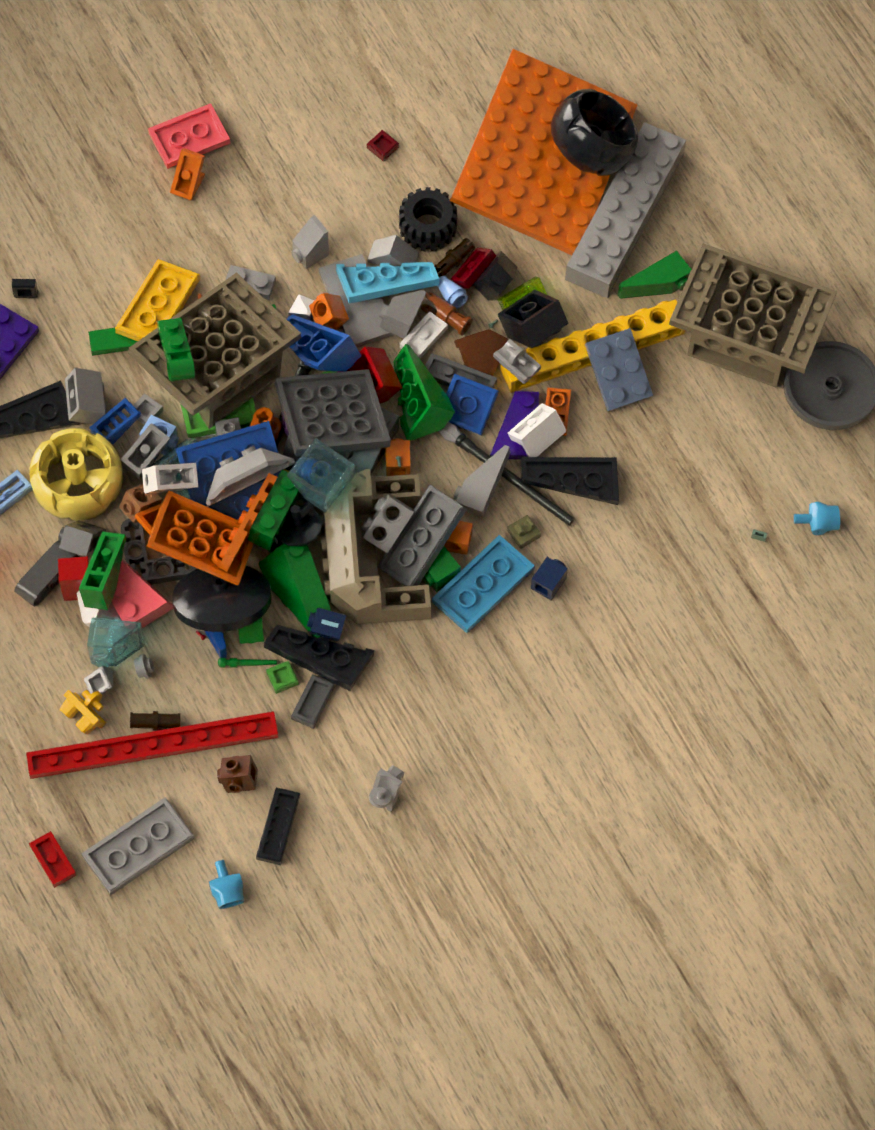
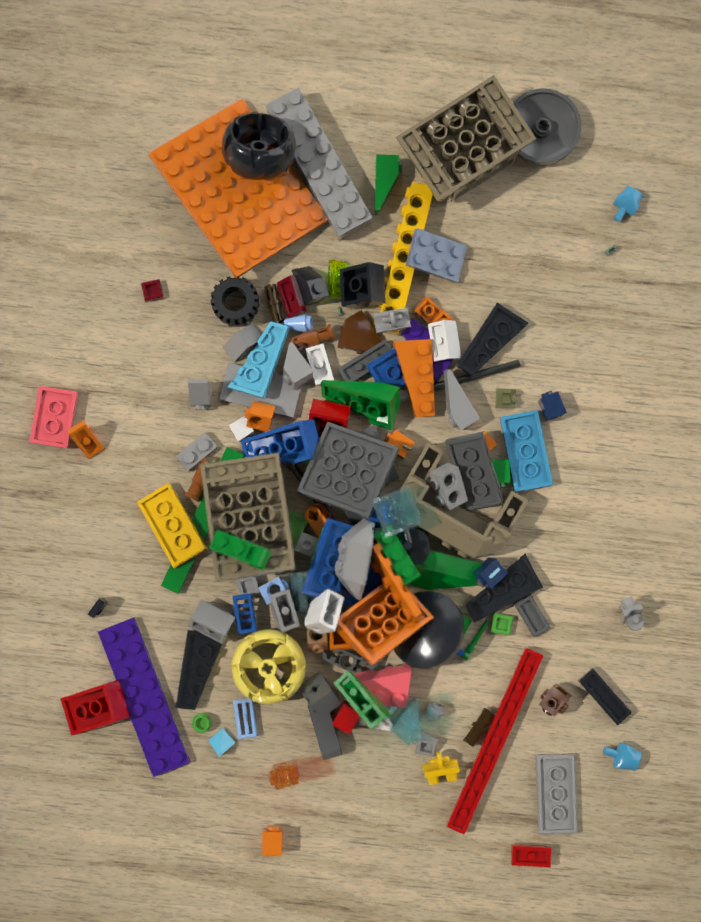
camera: 55 degrees left, 20 degrees up
(485, 424) = (417, 371): none -> orange wing

